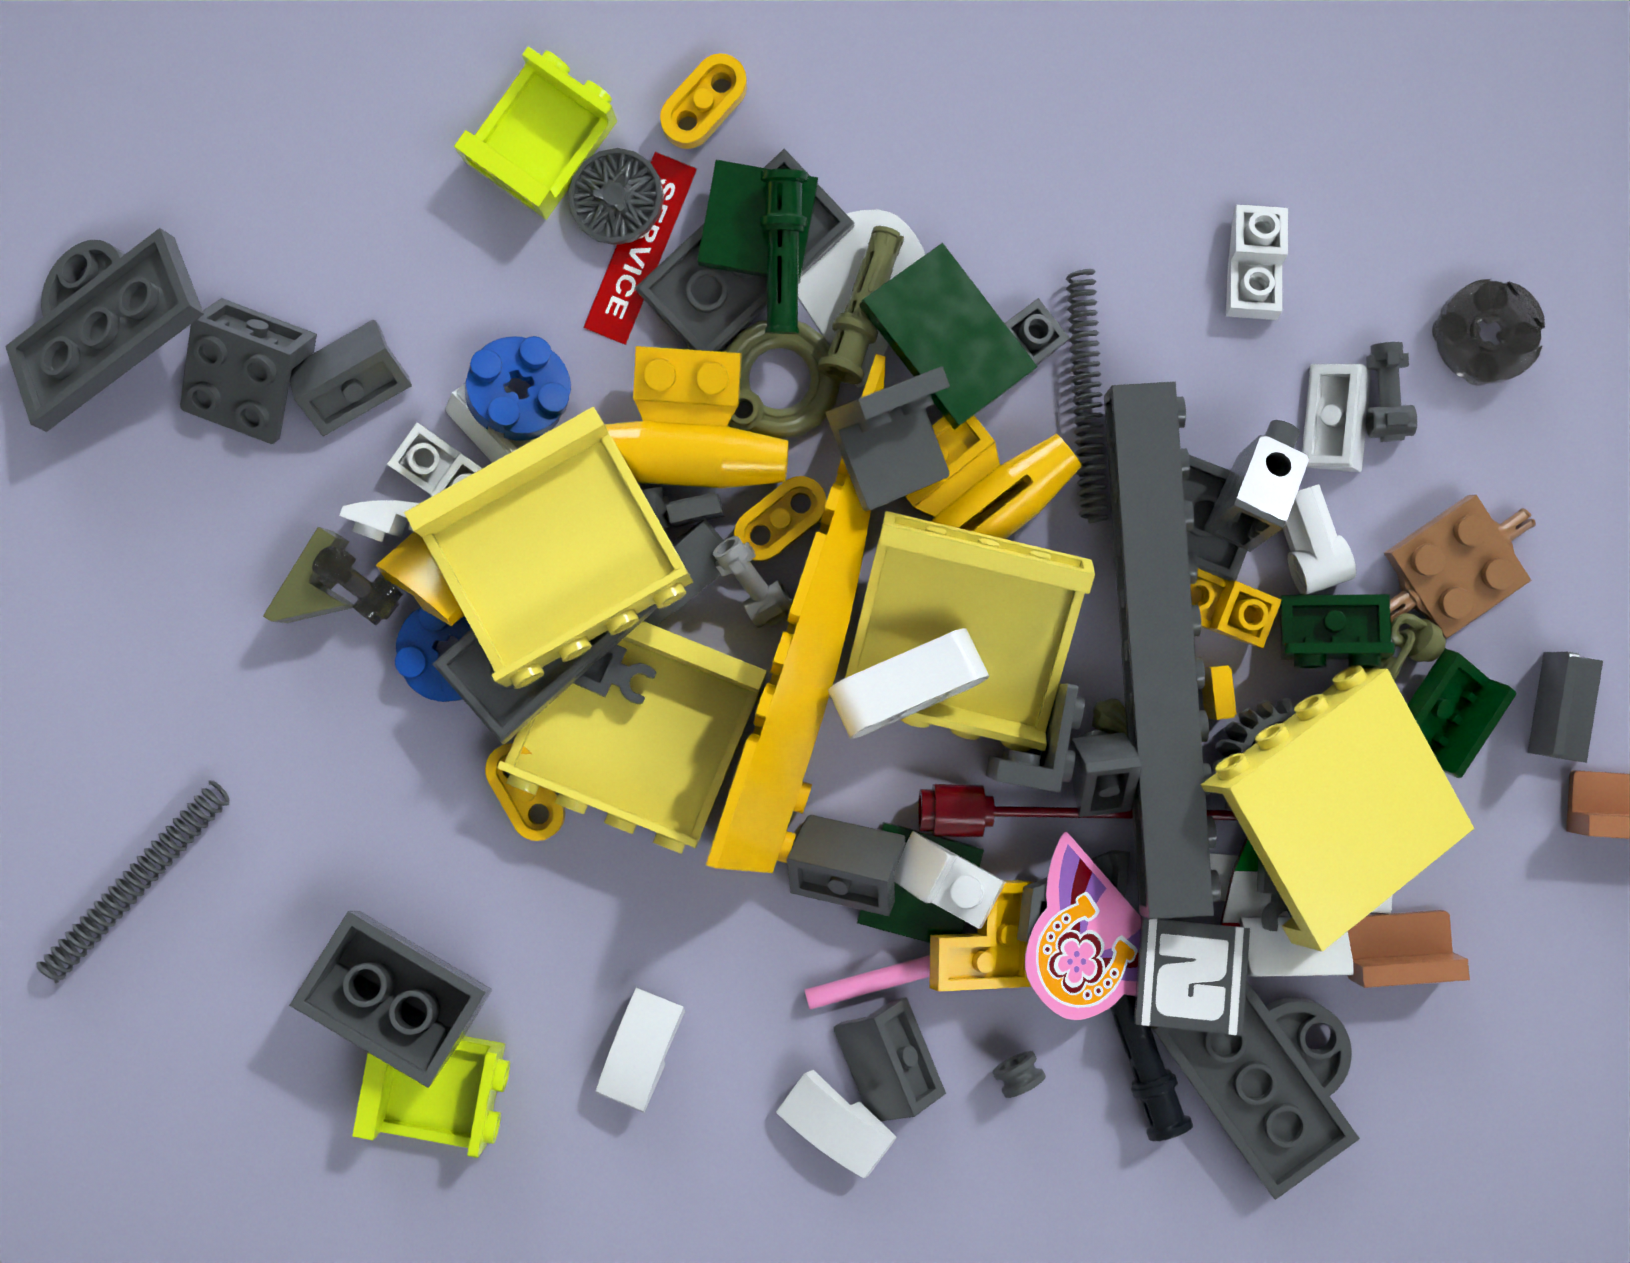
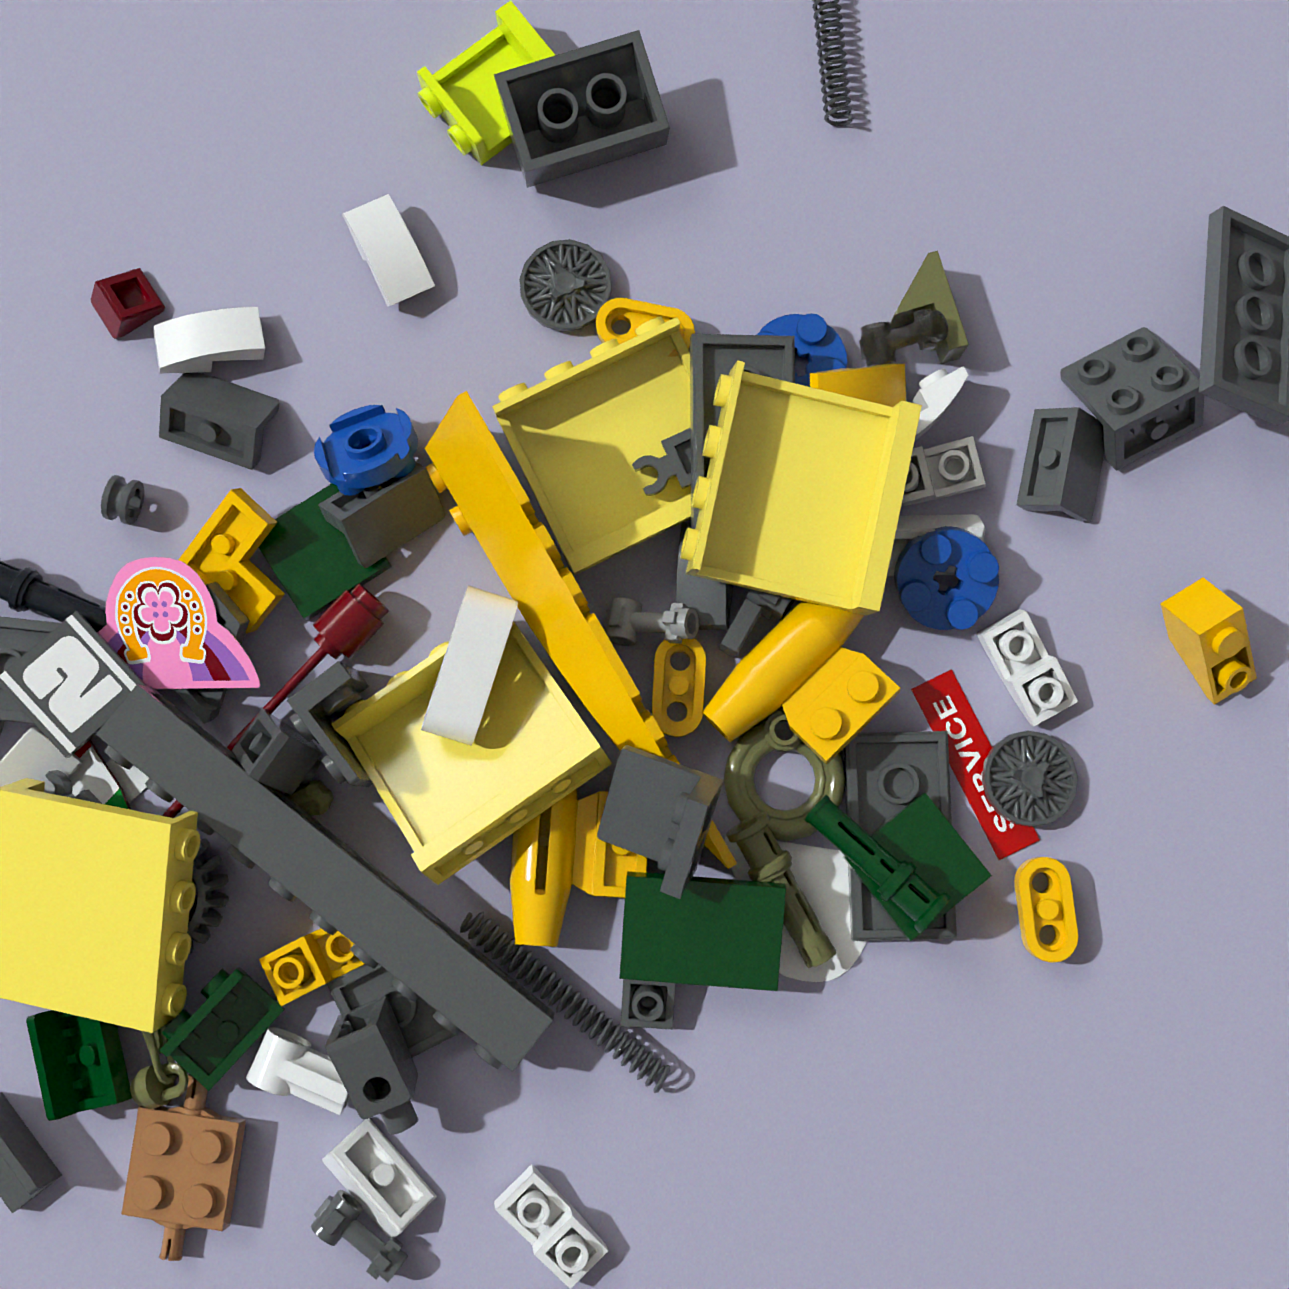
camera: 130 degrees right, 5 degrees down
(388, 150) = (1210, 638): none -> yellow slope
(532, 270) = (1026, 668): none -> white slope
(540, 132) = (1127, 764): neon yellow panel -> none
(544, 886) = (565, 285): none -> dark grey wheel
(810, 895) = (356, 468): none -> blue plate
(864, 1221) = (125, 302): none -> dark red slope
(868, 982) = (288, 451): bright pink bar -> none
(947, 880) = (304, 569): white slope -> none
(1219, 693) = (256, 894): yellow tile -> none

